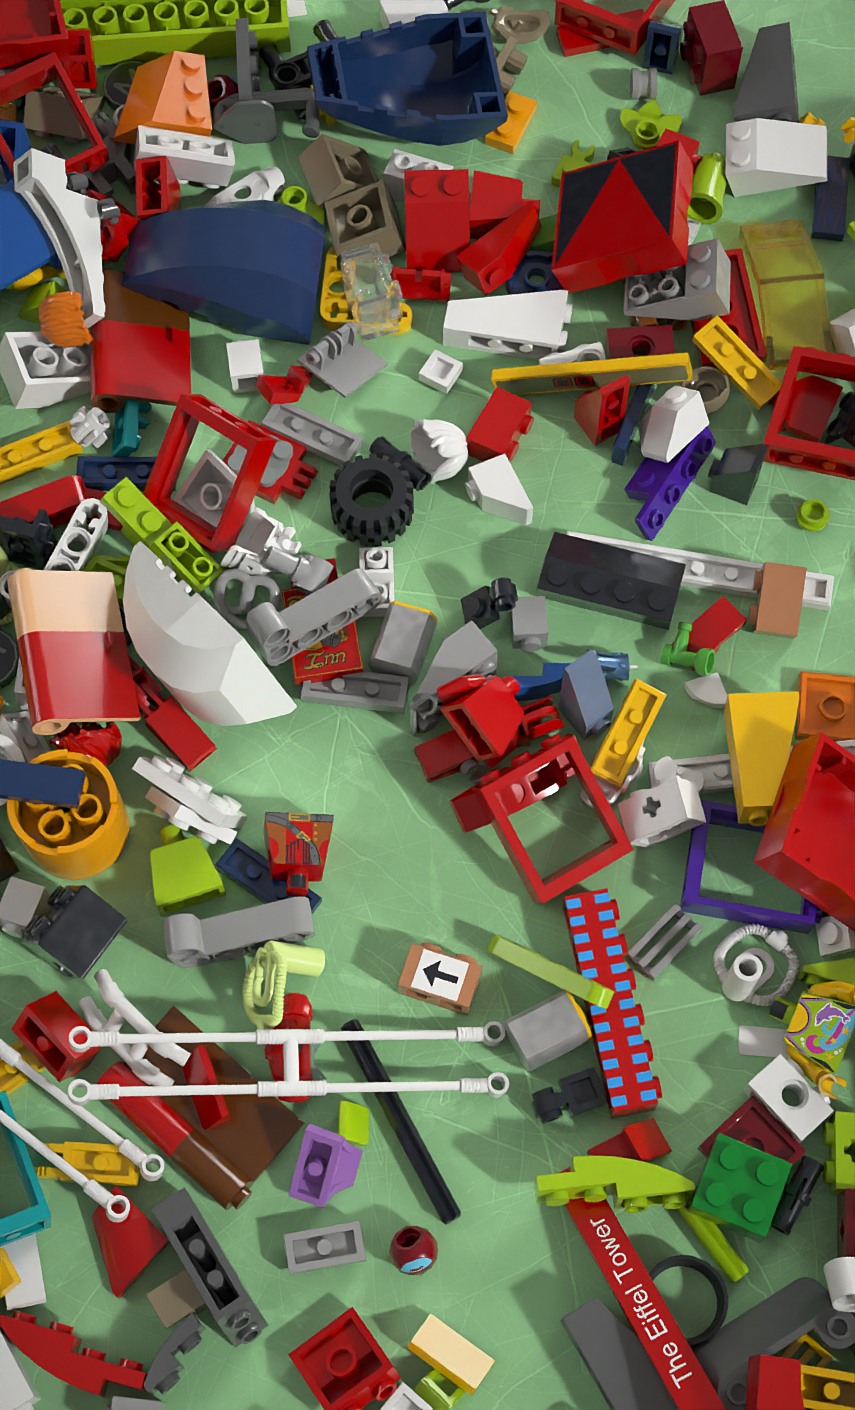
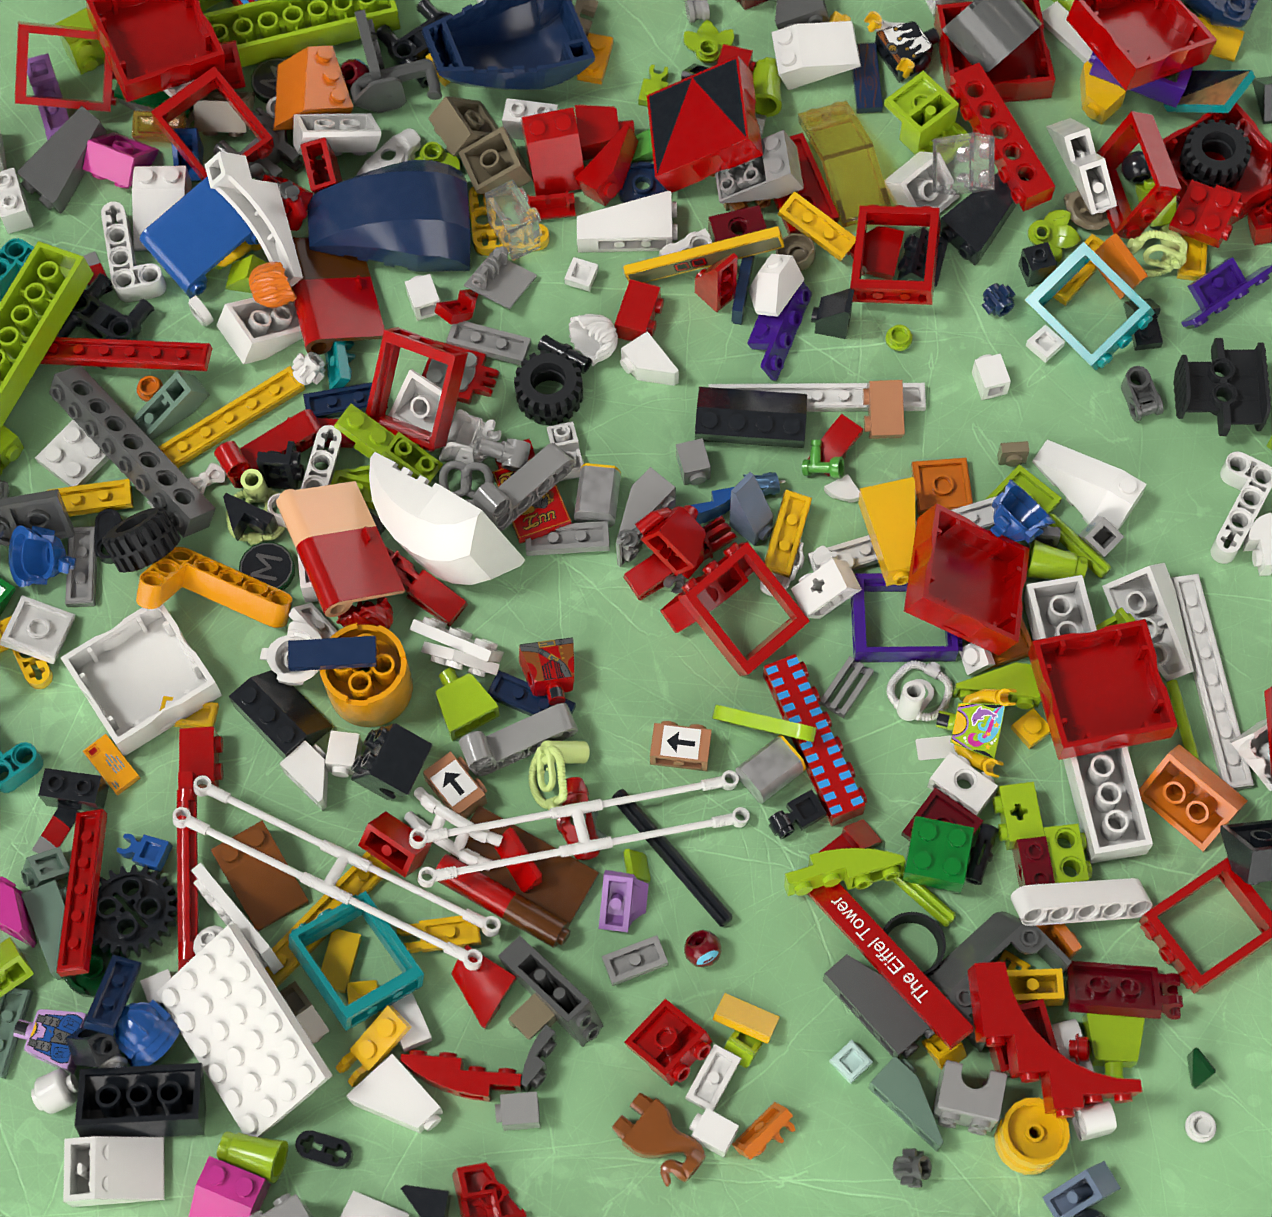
camera: 10 degrees left, 0 degrees up
(149, 976) = (455, 786): none -> brick
(485, 603) = (657, 451): black plate -> none

